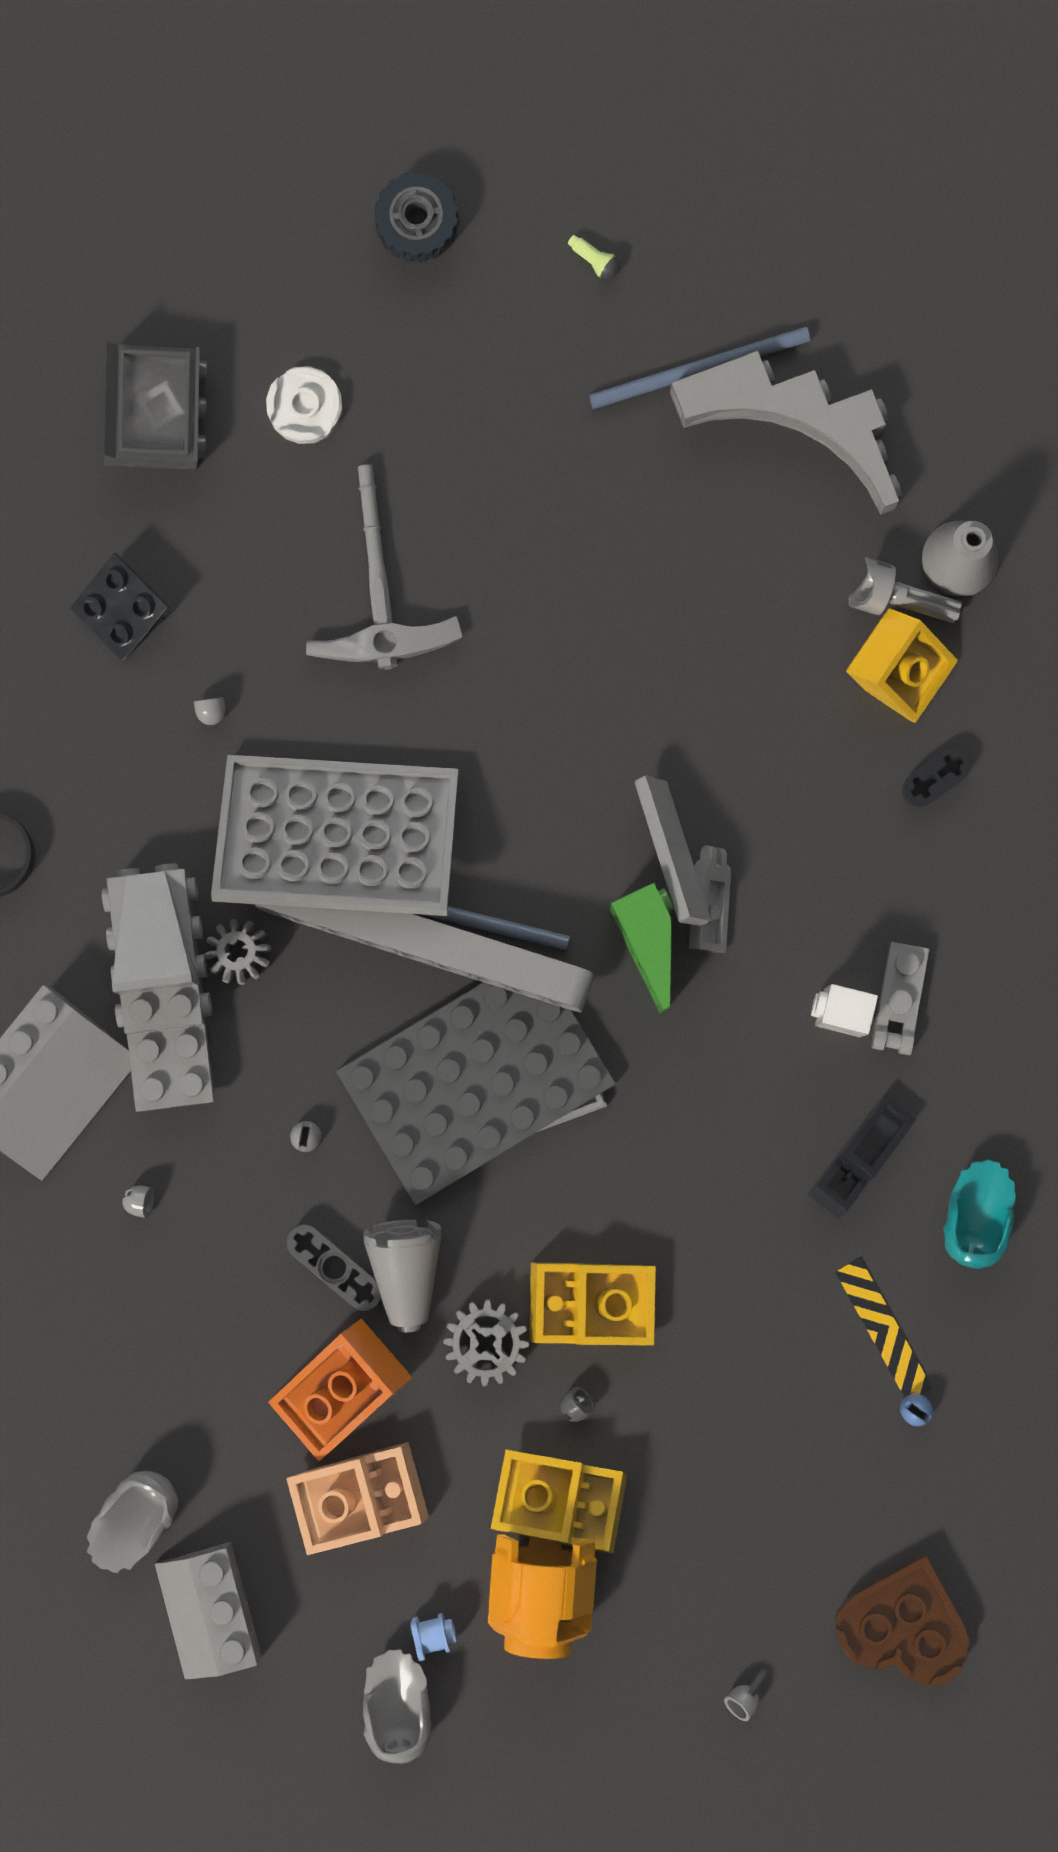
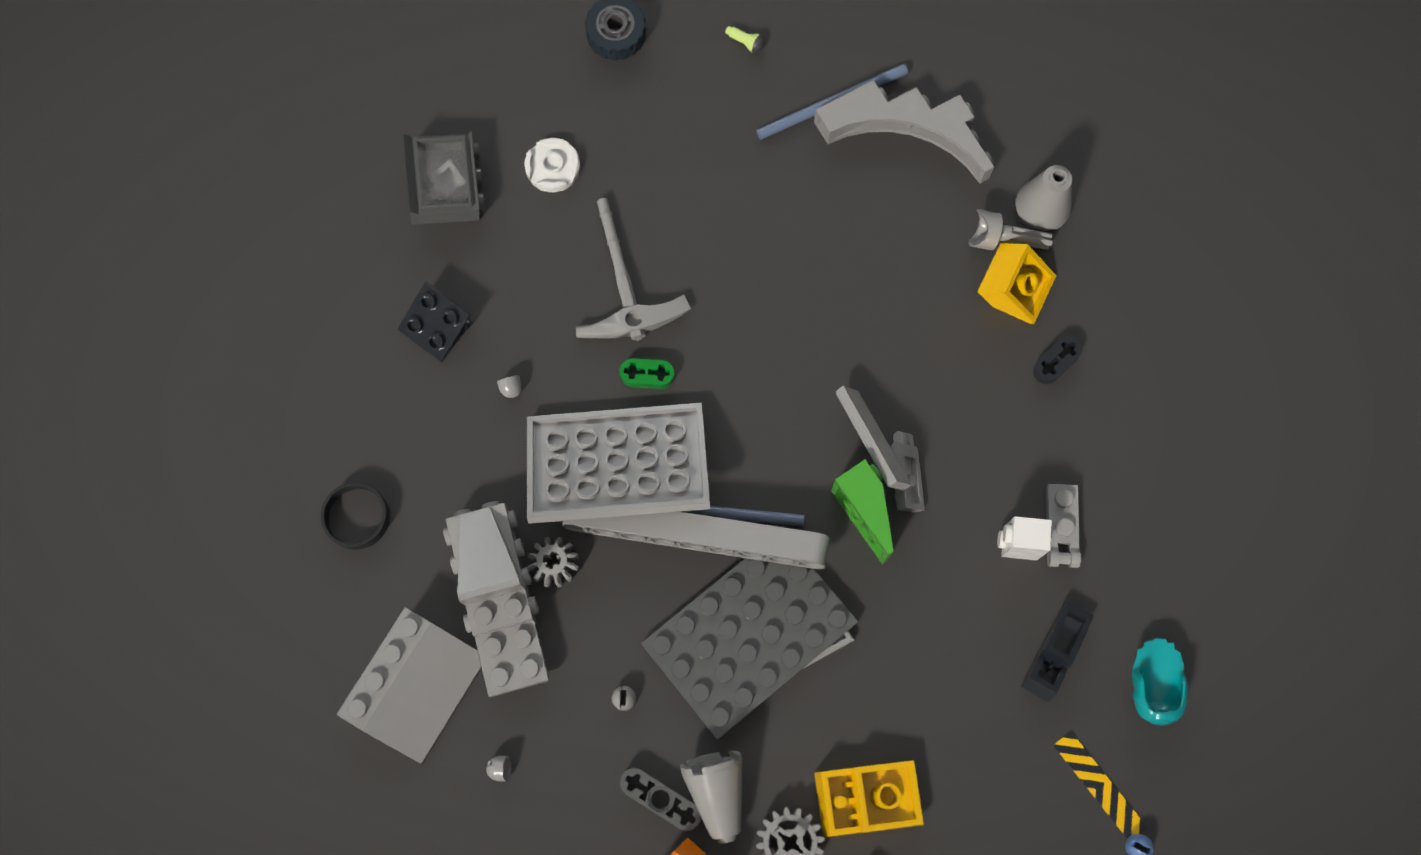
camera: 10 degrees left, 10 degrees down
(393, 708) = (645, 380): none -> green beam

